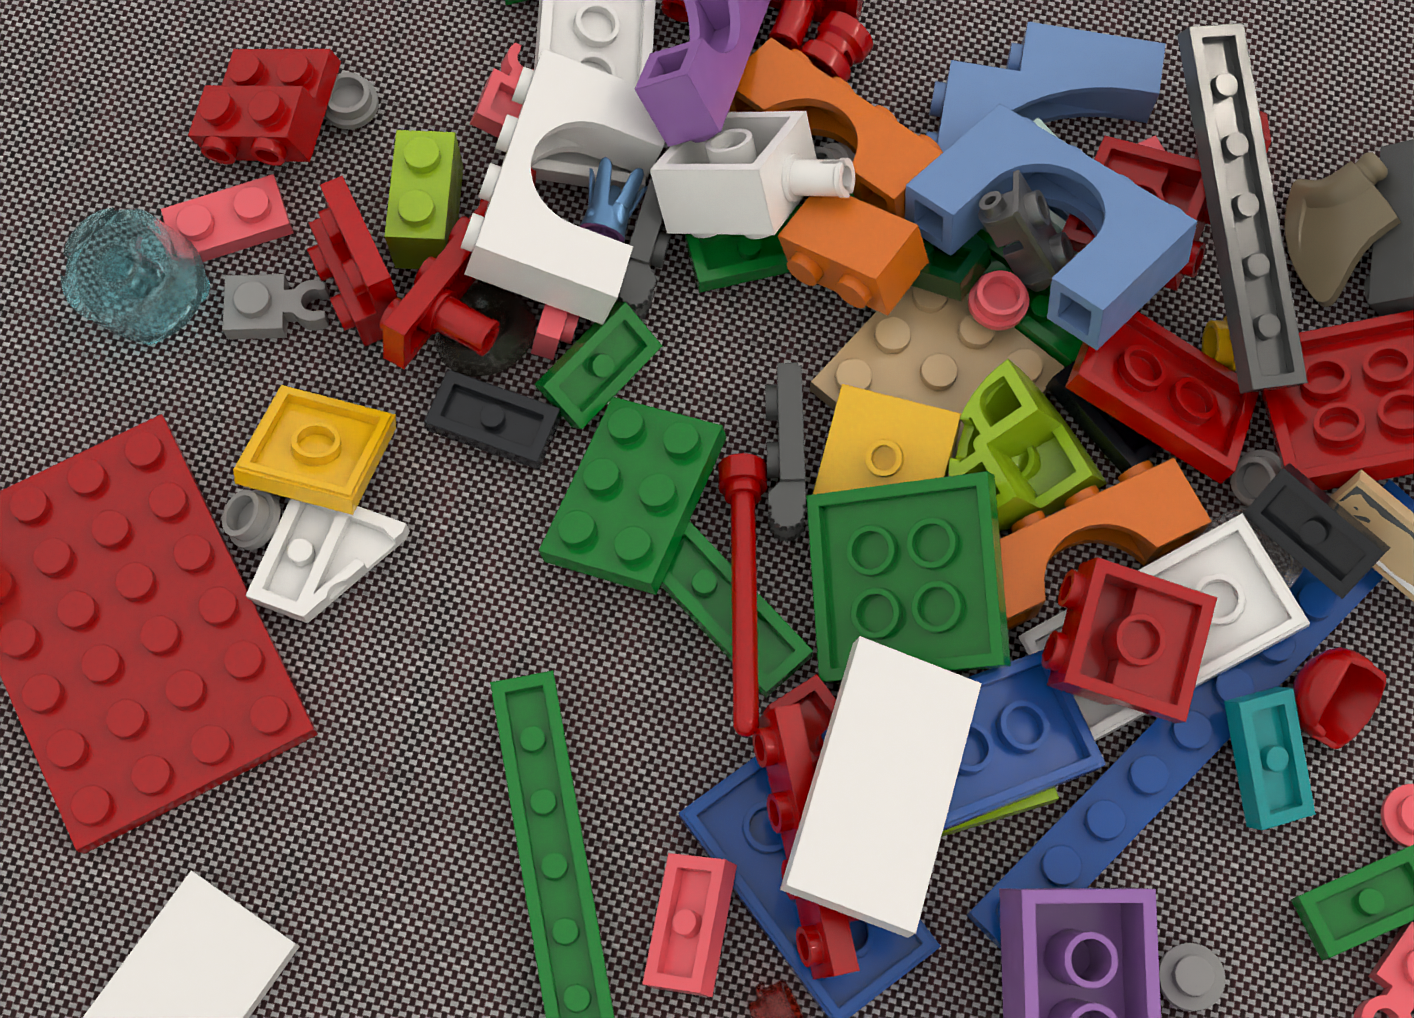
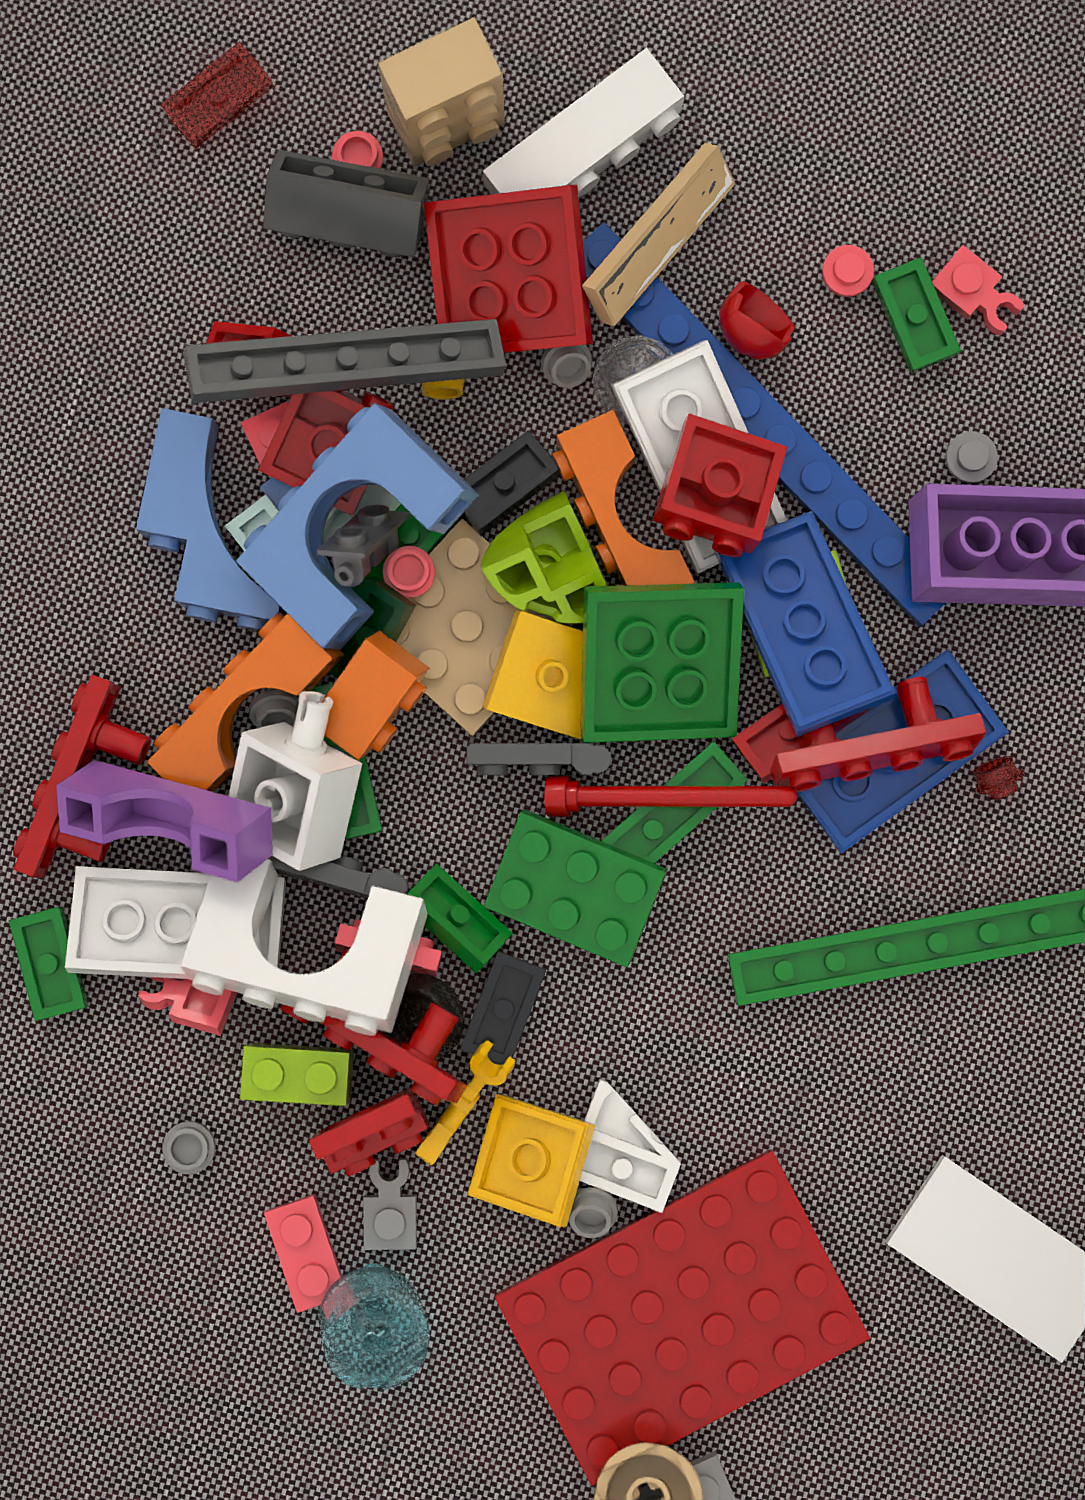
camera: 90 degrees left, 15 degrees up
(266, 106) = (199, 1221): red plate -> none
(415, 393) = (484, 1073): none -> yellow piece
(608, 205) = (324, 914): flat silver piece -> none
(690, 924) = (932, 844): coral plate -> none
(839, 45) = (149, 703): red wheel -> none
(882, 788) = (845, 689): white tile -> none
(1167, 394) = (500, 433): red plate -> none
(1269, 758) = (805, 380): teal plate -> none
(1316, 530) = (631, 327): black plate -> none
(1335, 223) = (335, 276): dark tan arm -> none

